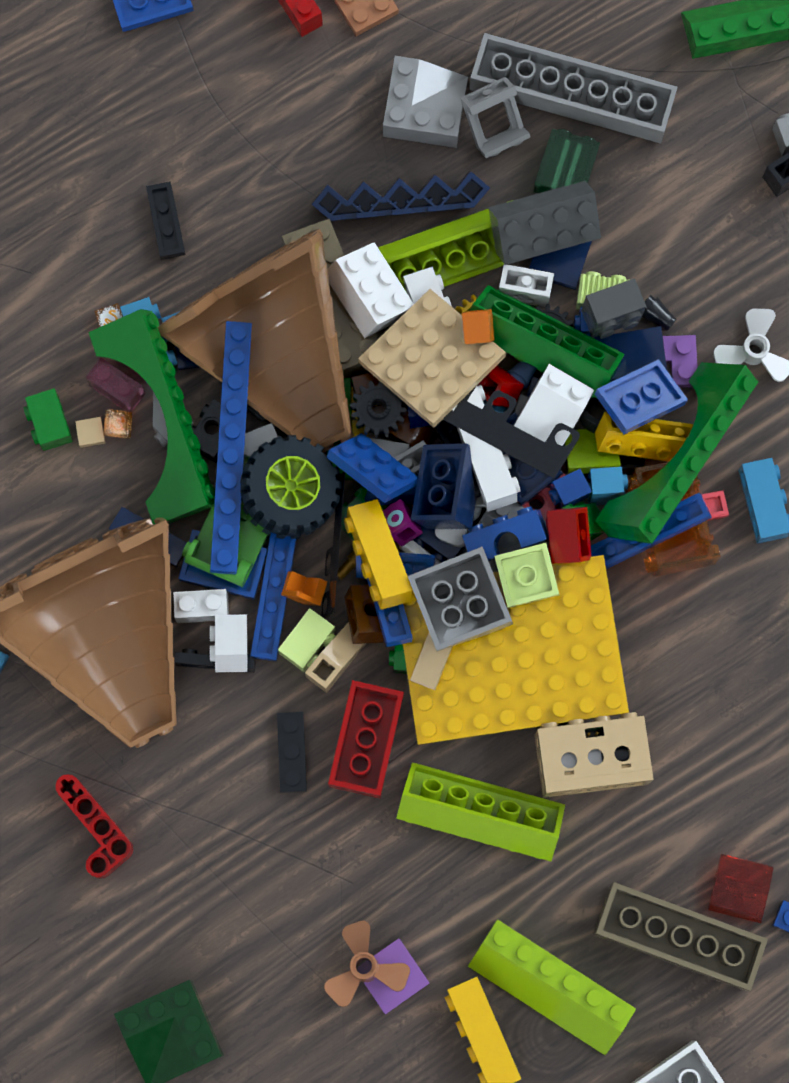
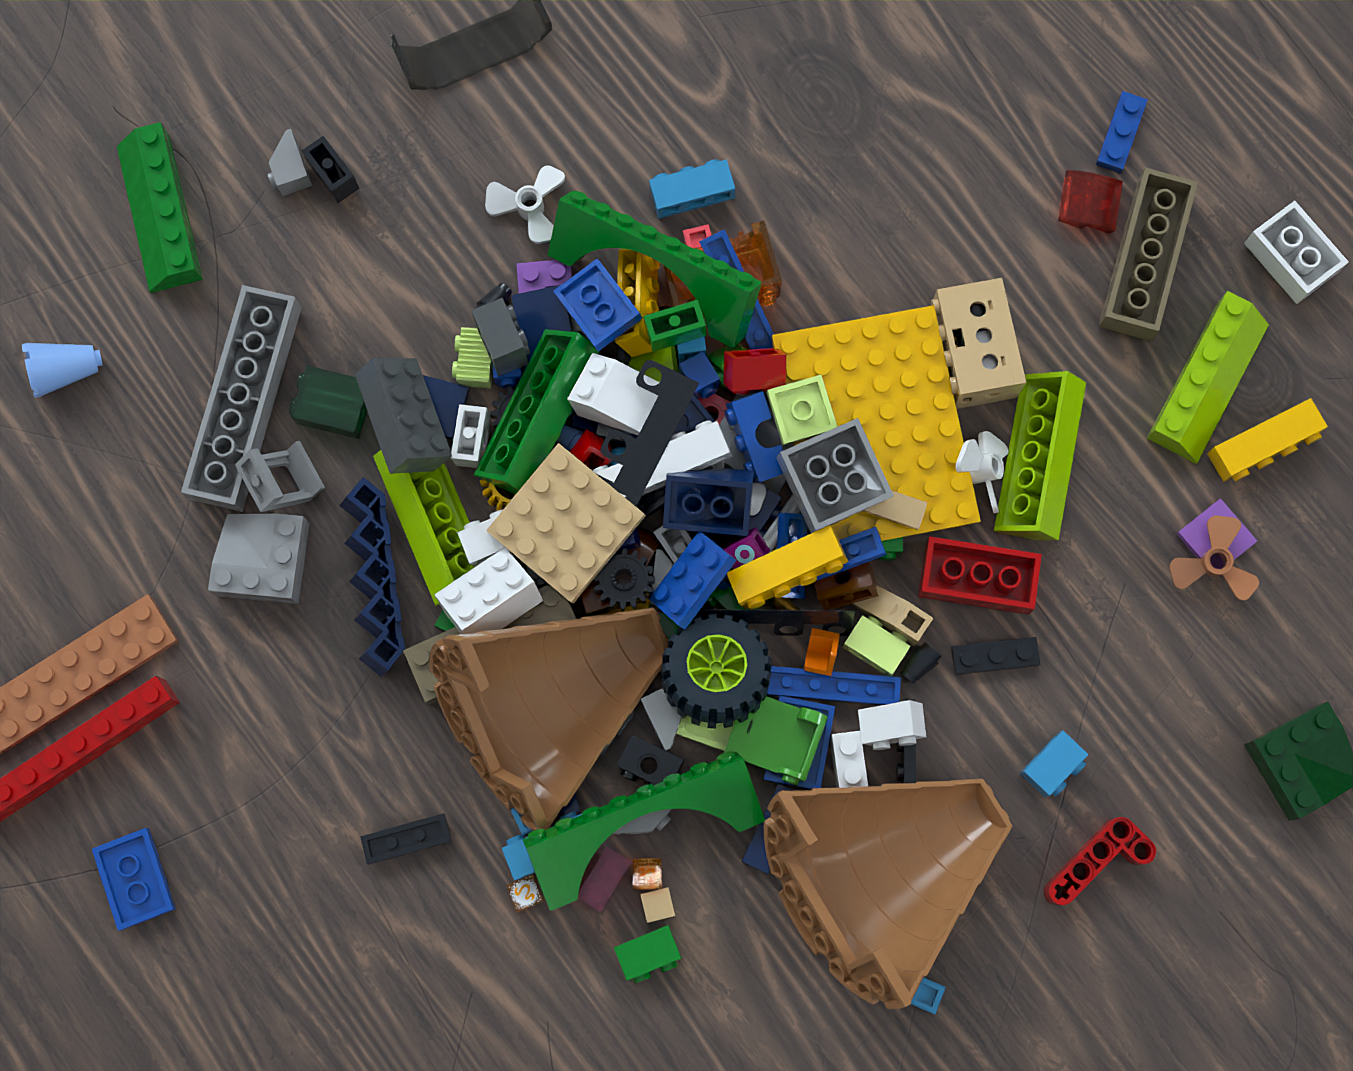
camera: 90 degrees left, 0 degrees up
(184, 794) = (1054, 765): none -> dark azure brick
(231, 448) = (674, 738): blue plate -> none
(290, 681) = (921, 662): none -> black cone
(470, 753) = (983, 461): none -> white piece
(478, 326) = (531, 472): orange panel -> none
(612, 461) = (675, 325): none -> green brick

